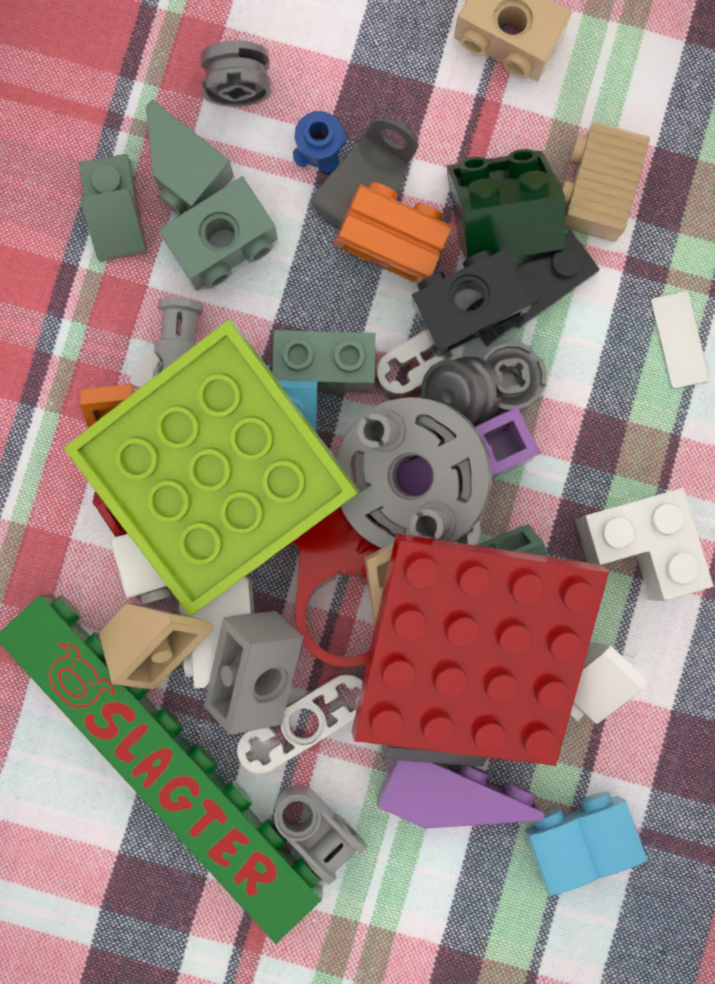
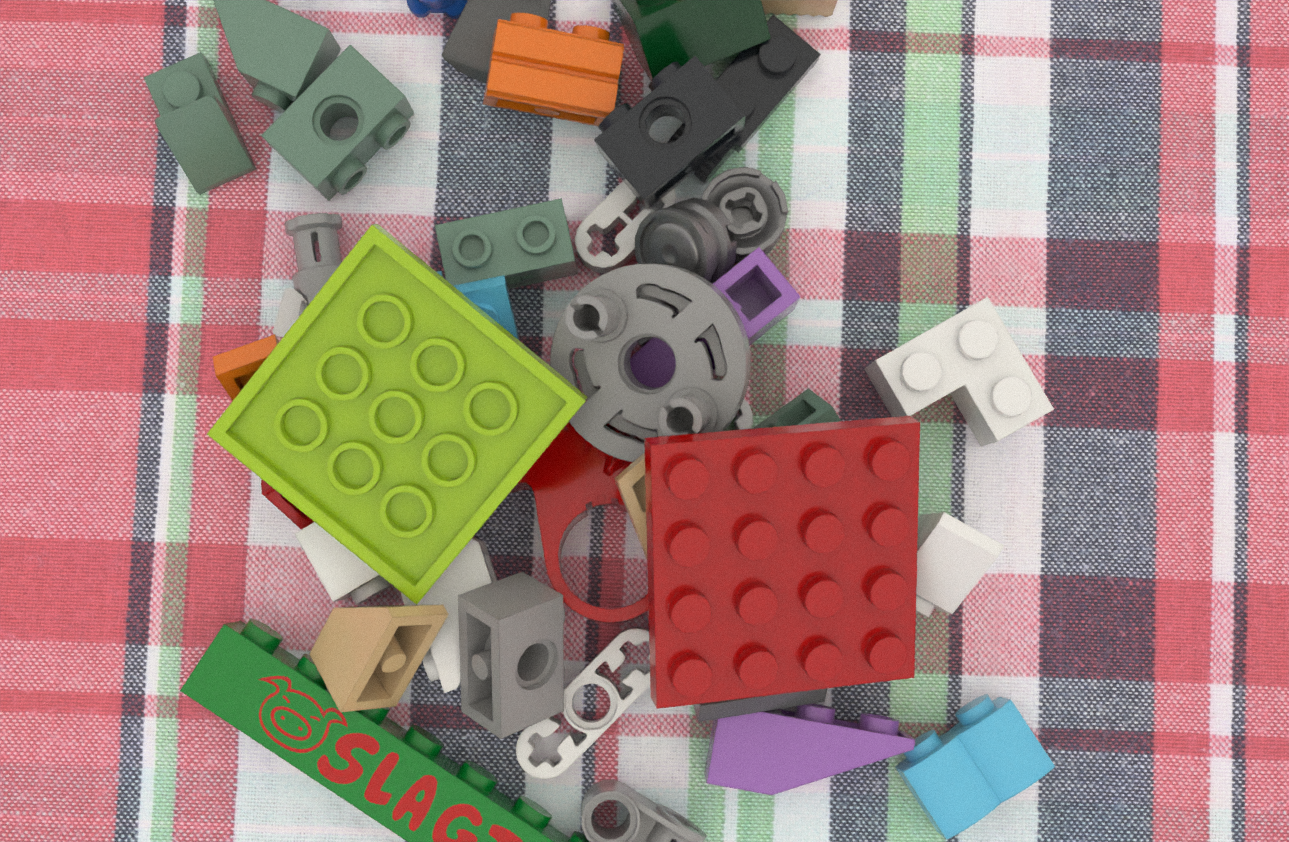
camera: 10 degrees left, 0 degrees up
(680, 339) = (940, 117): white sticker -> none

